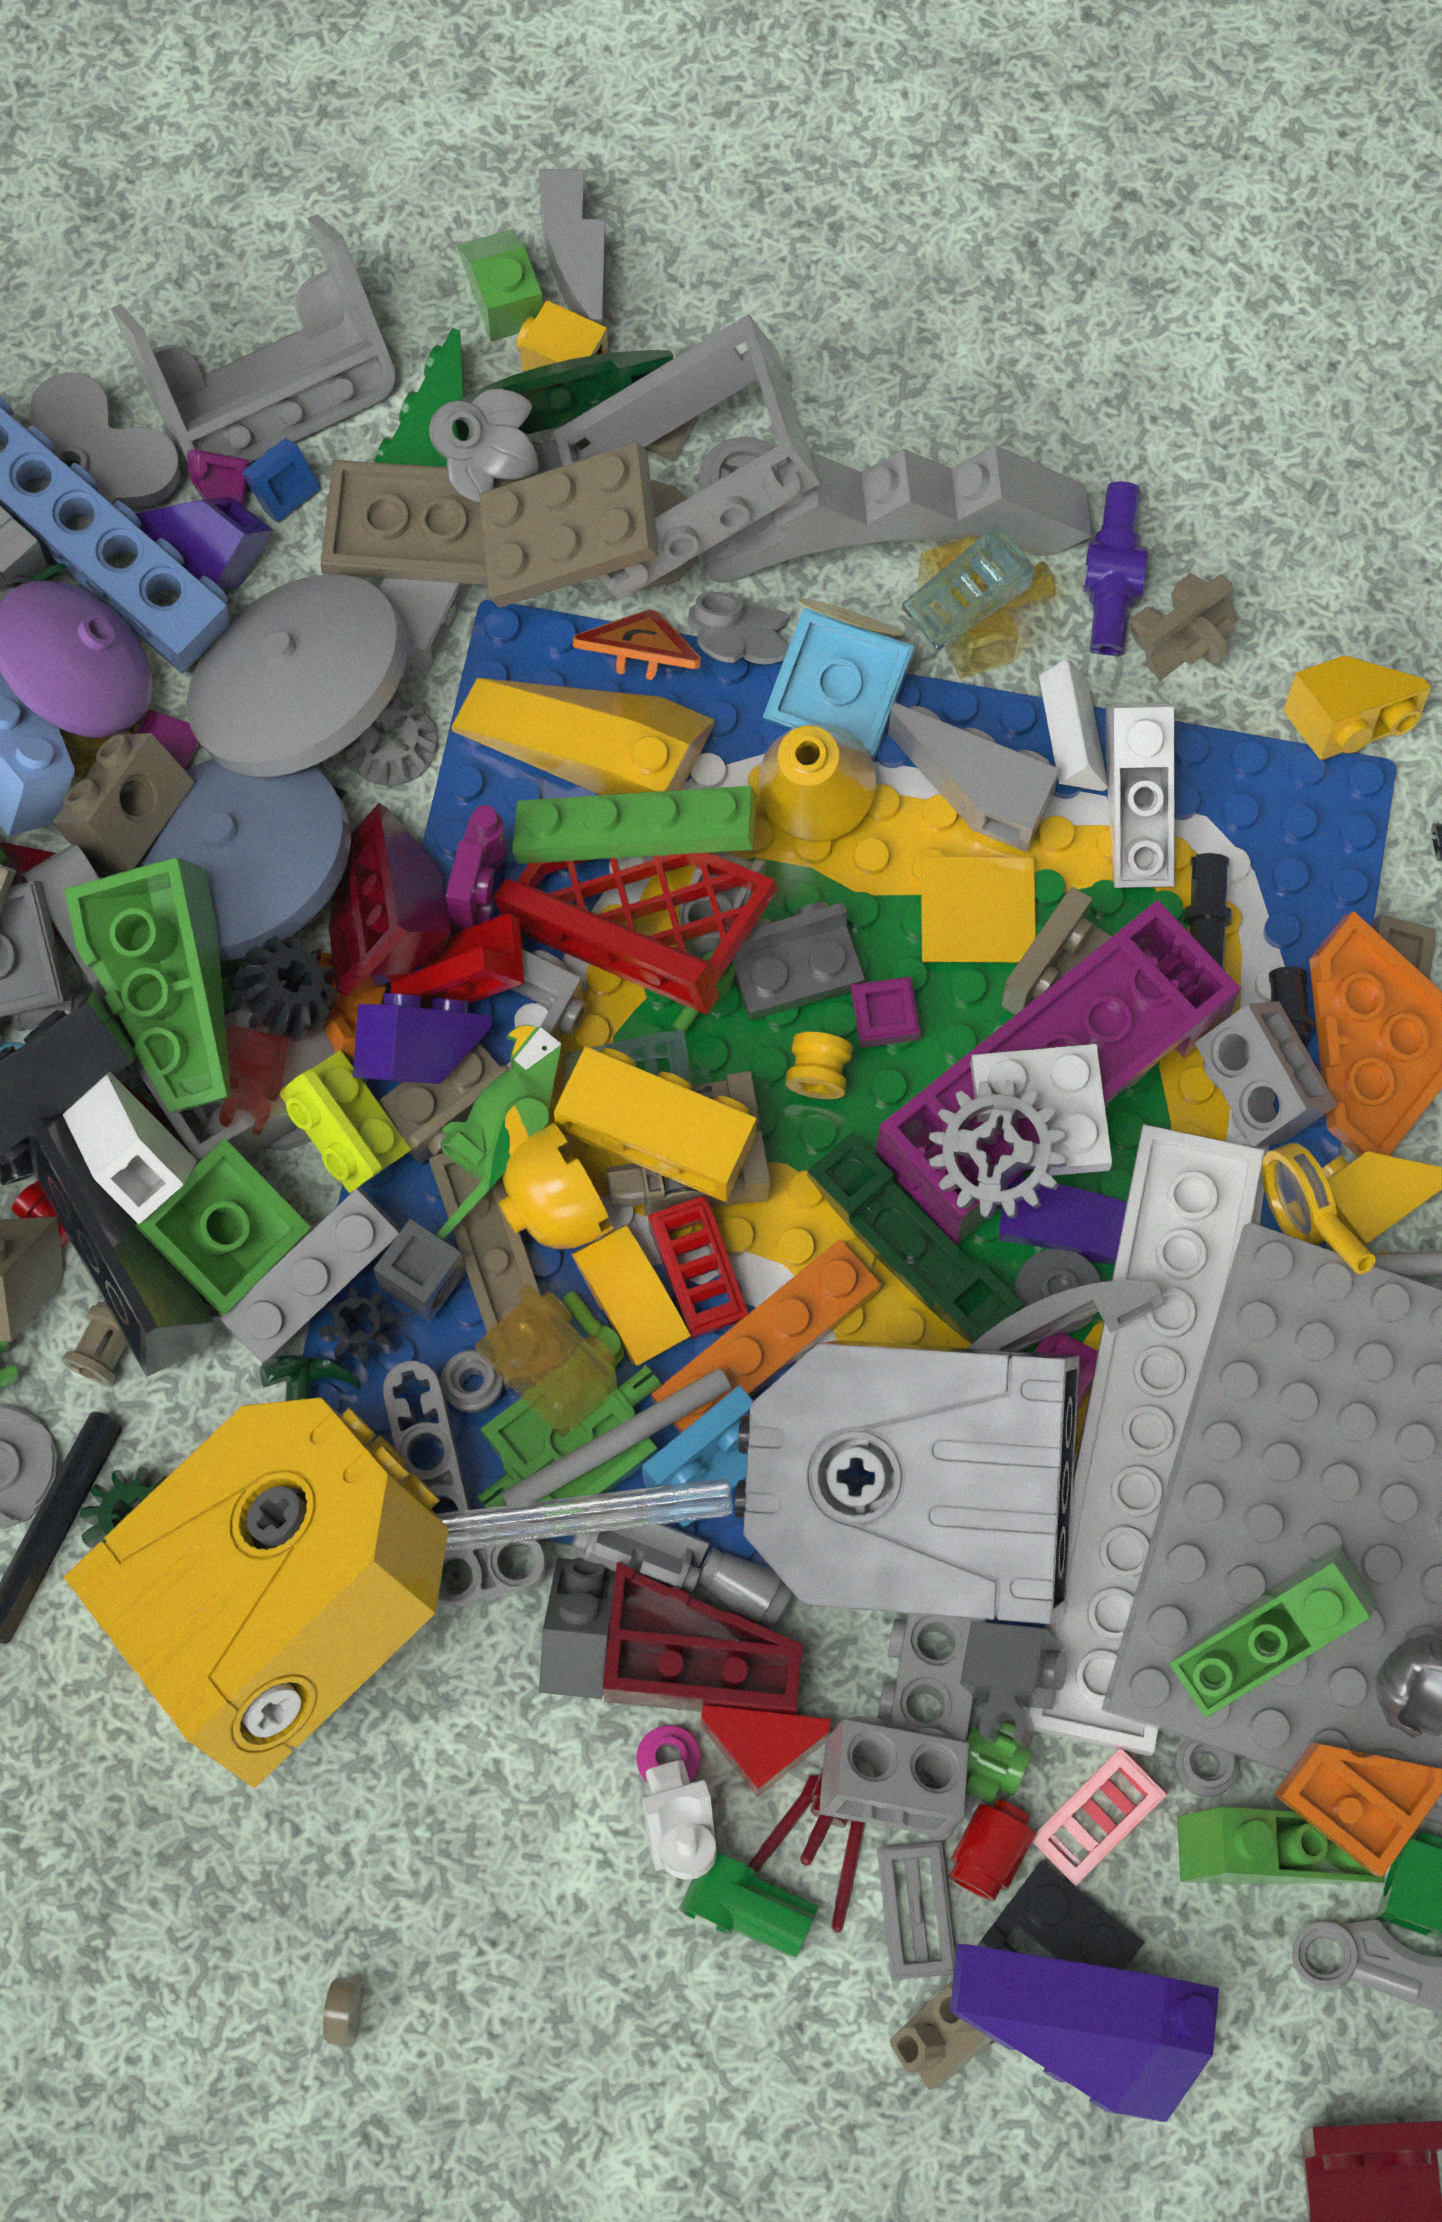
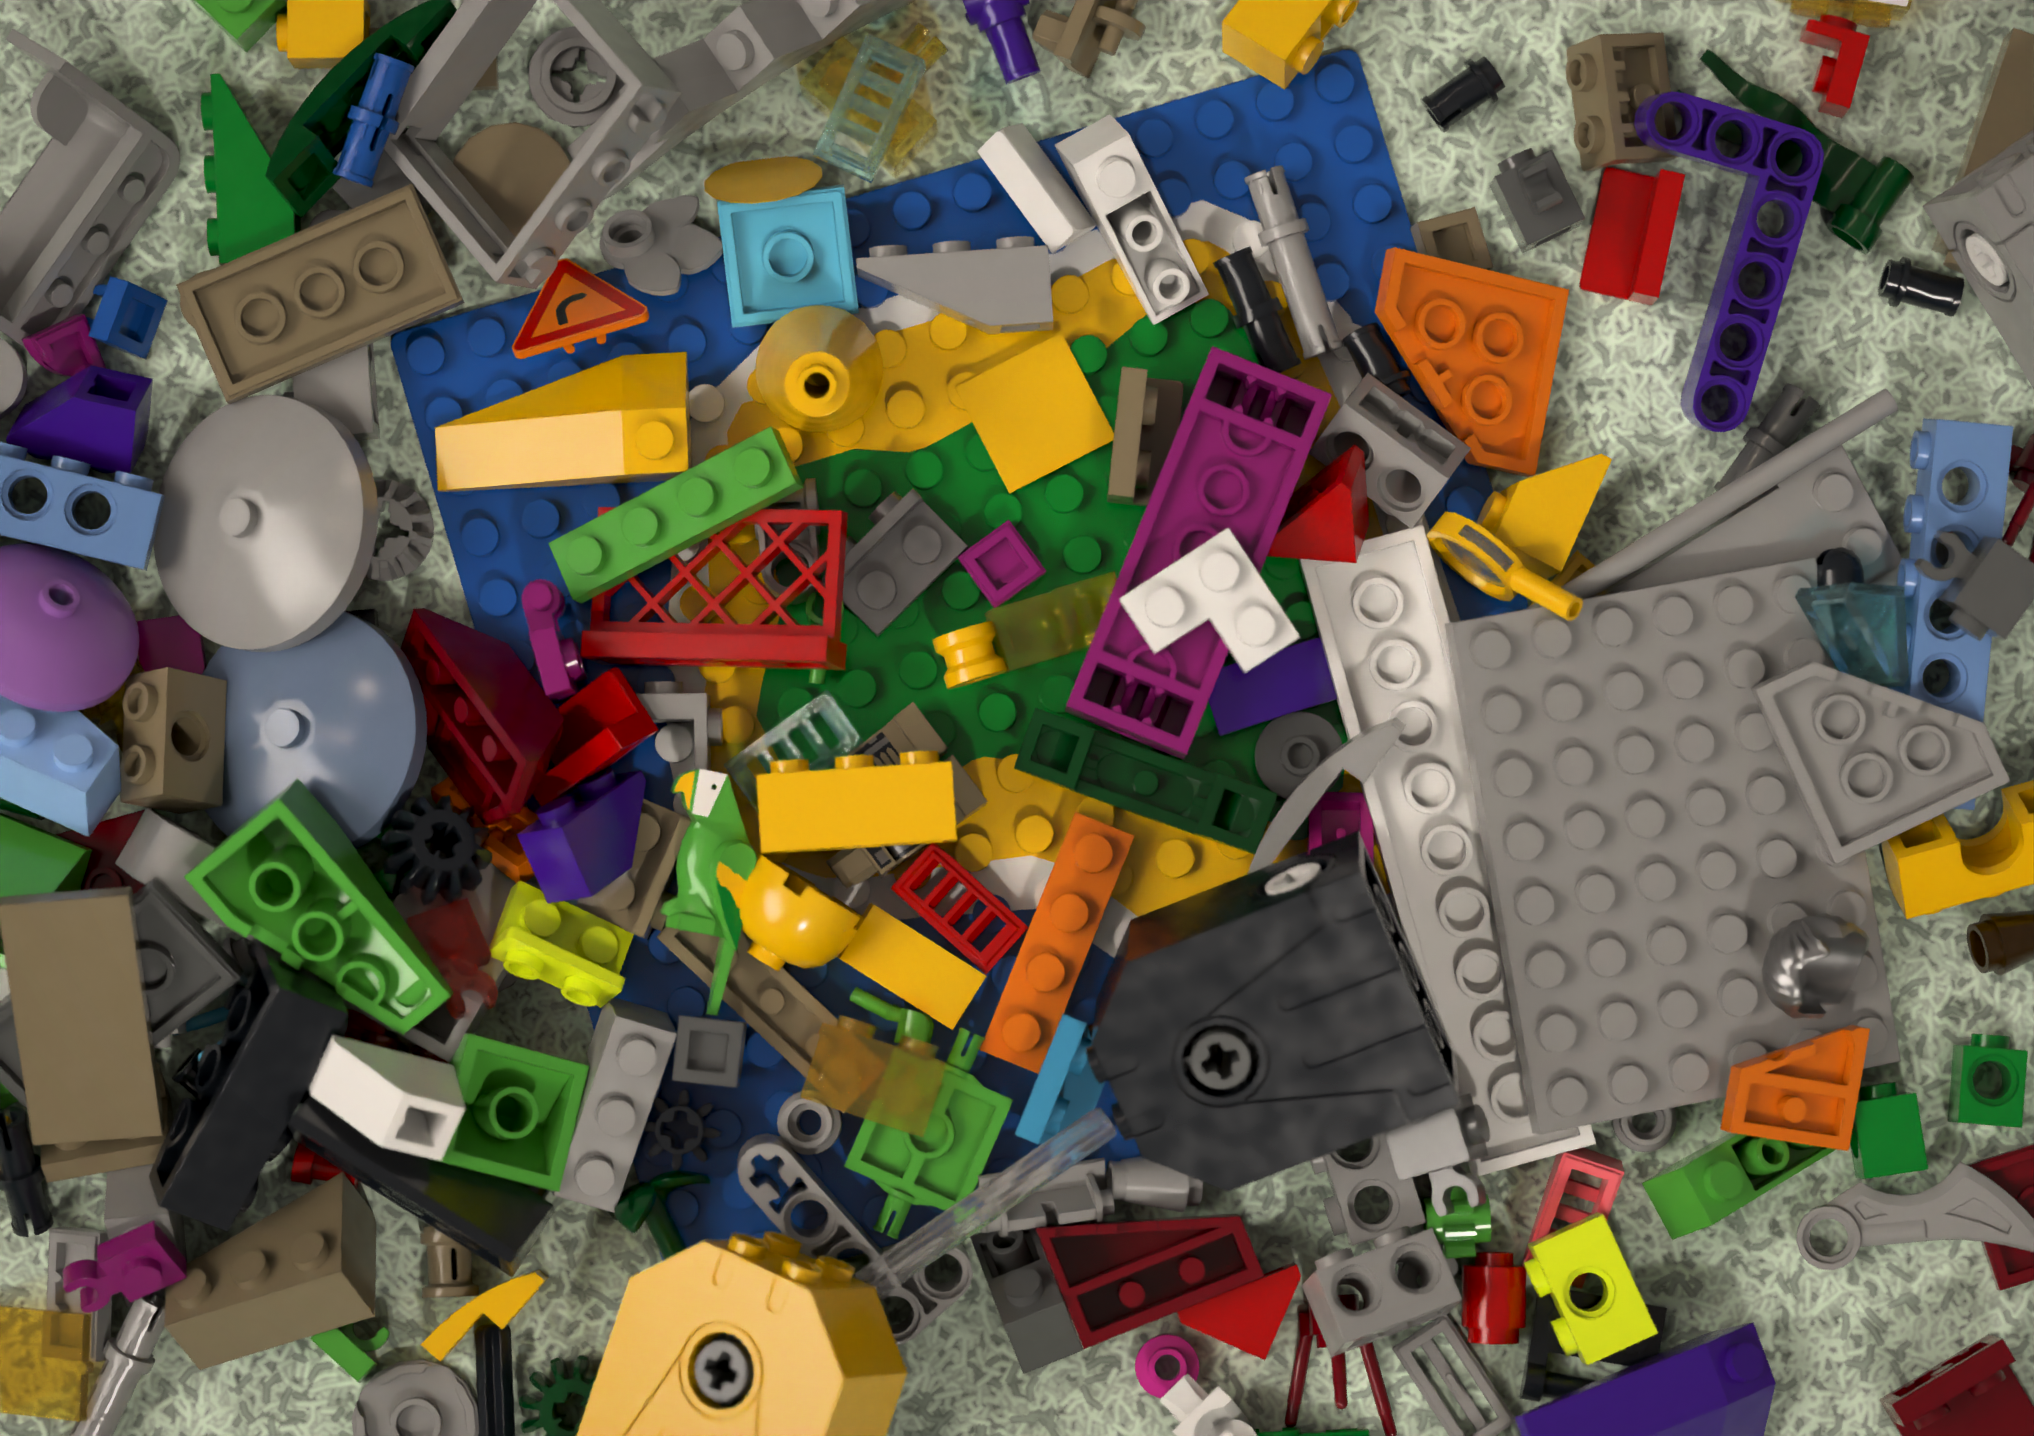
camera: 30 degrees left, 15 degrees up
(126, 1395) = (498, 1304): none -> yellow slope
(493, 444) = (329, 197): light grey plate -> none
(564, 411) = (373, 119): none -> blue pin
(568, 525) = (454, 250): dark tan plate -> none
(618, 1439) = (974, 1116): light grey bar -> none
(890, 1076) = (1050, 622): none -> clear yellow slope
(970, 1144) = (1163, 689): light grey gear -> none
(1101, 1841) = (1621, 1313): none -> neon yellow brick
(1187, 1099) = (1327, 514): none -> red slope
(1262, 869) = (1293, 261): none -> light grey pin
(1275, 1632) = (1657, 989): bright green slope -> none

